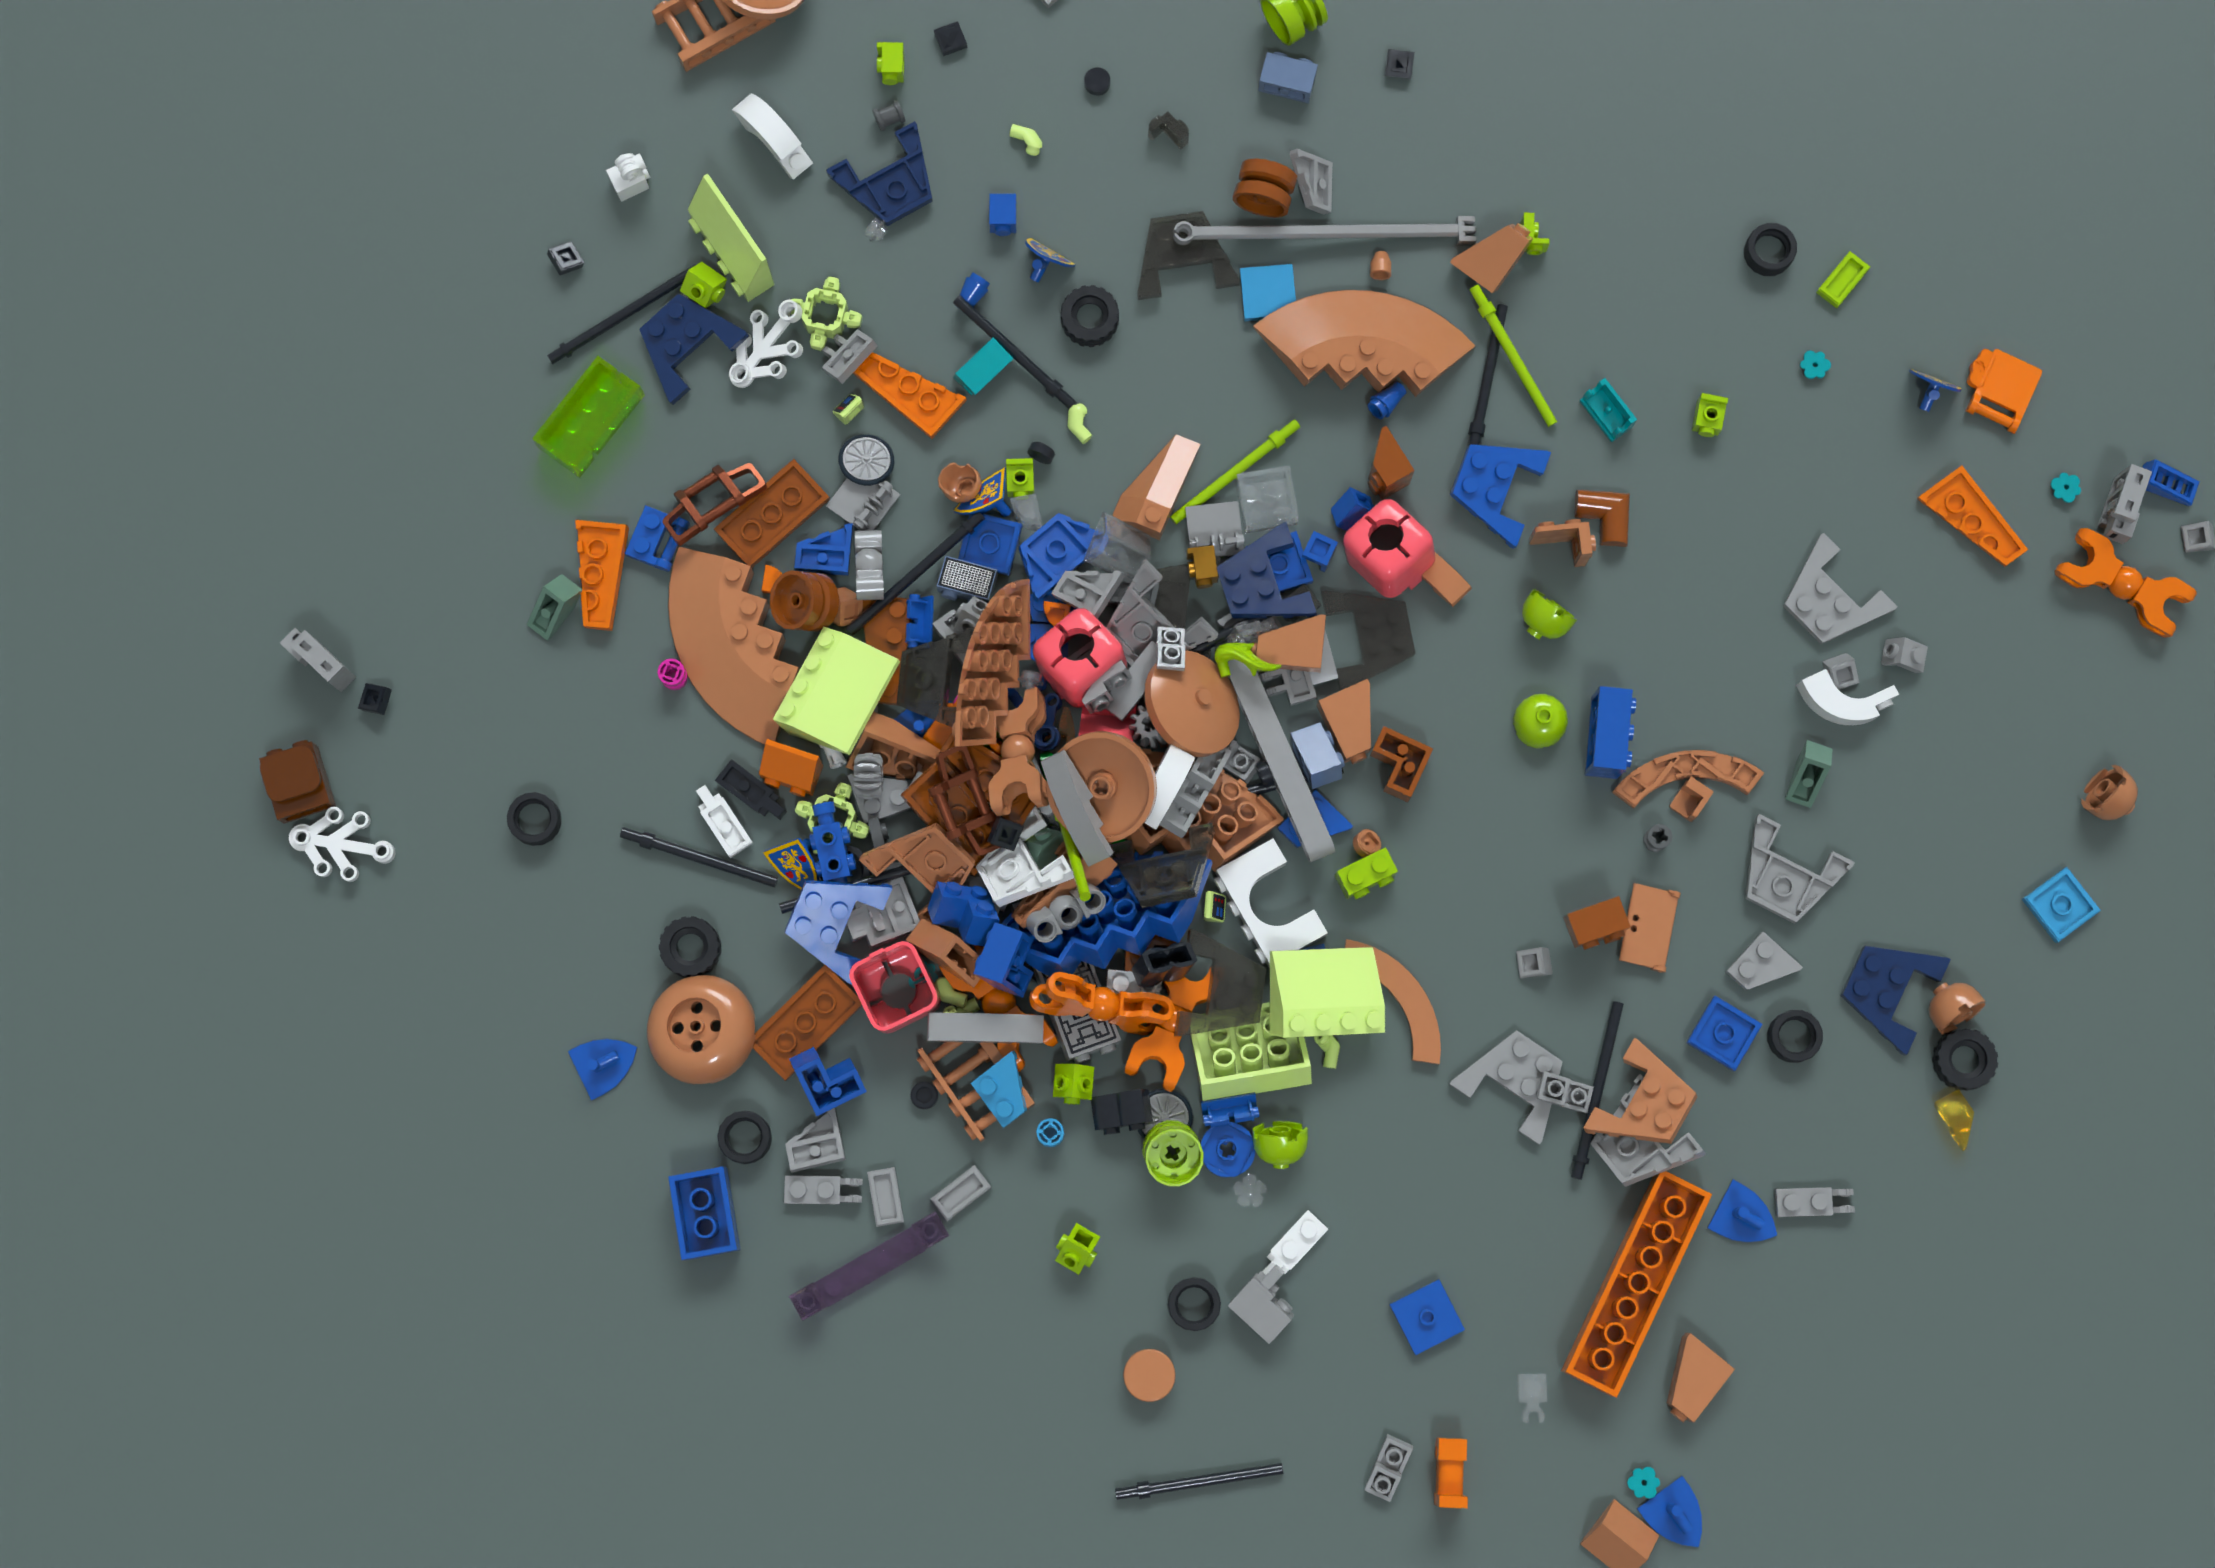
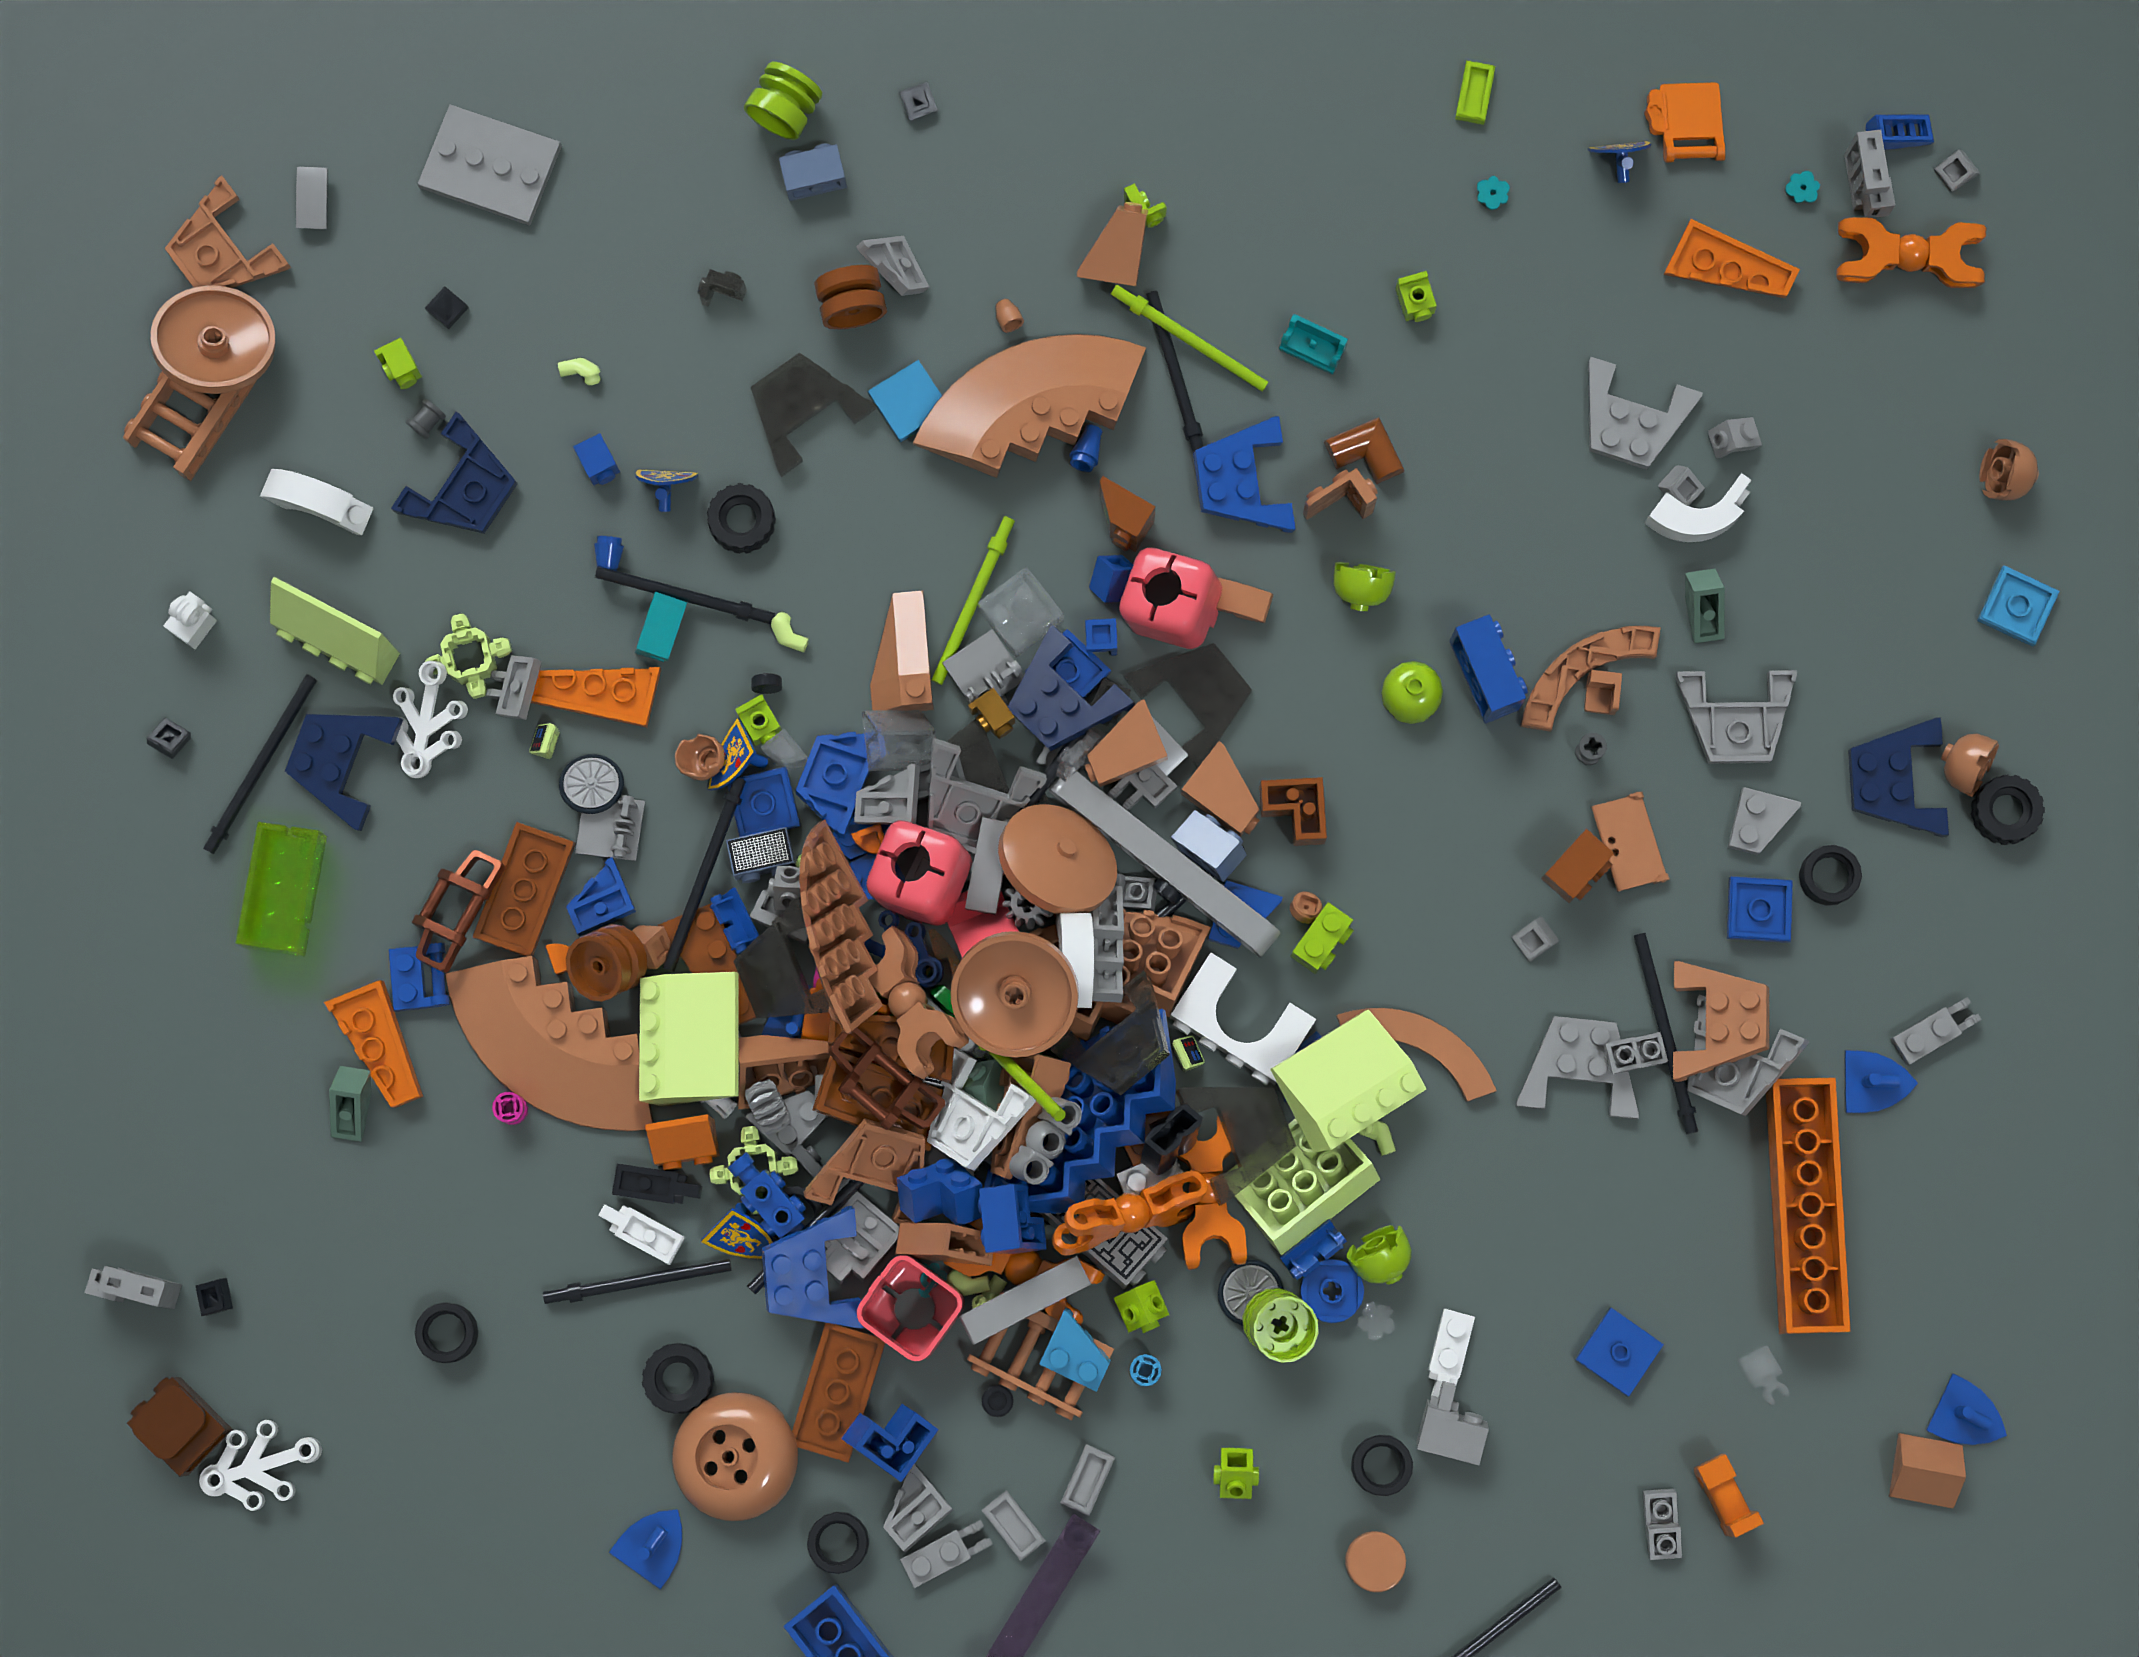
camera: 25 degrees left, 0 degrees up
(703, 285) = (328, 691): lime brick -> none
(869, 565) = (652, 890): light grey piece -> none
(876, 230) = (475, 543): clear plate -> none
(1005, 833) = (940, 1092): black tile -> none
(1030, 679) = (880, 921): clear plate -> none
(1075, 808) = (1002, 1032): light grey slope -> none
(1097, 81) = (620, 274): black tile -> none
(1098, 695) = (960, 902): light grey slope -> none
(1122, 1110) = (1205, 1309): black brick -> none
(1170, 648) = (1007, 816): light grey slope -> none
(1242, 653) = (1082, 782): lime piece -> none
(1329, 231) = (938, 307): light grey hinge -> none
(1651, 1482) = (1927, 1405): teal plant -> none
(1695, 1379) = (1916, 1270): nougat slope -> none
(1779, 232) = (1393, 78): black tyre -> none
(1957, 1115) = (2029, 869): clear yellow slope -> none

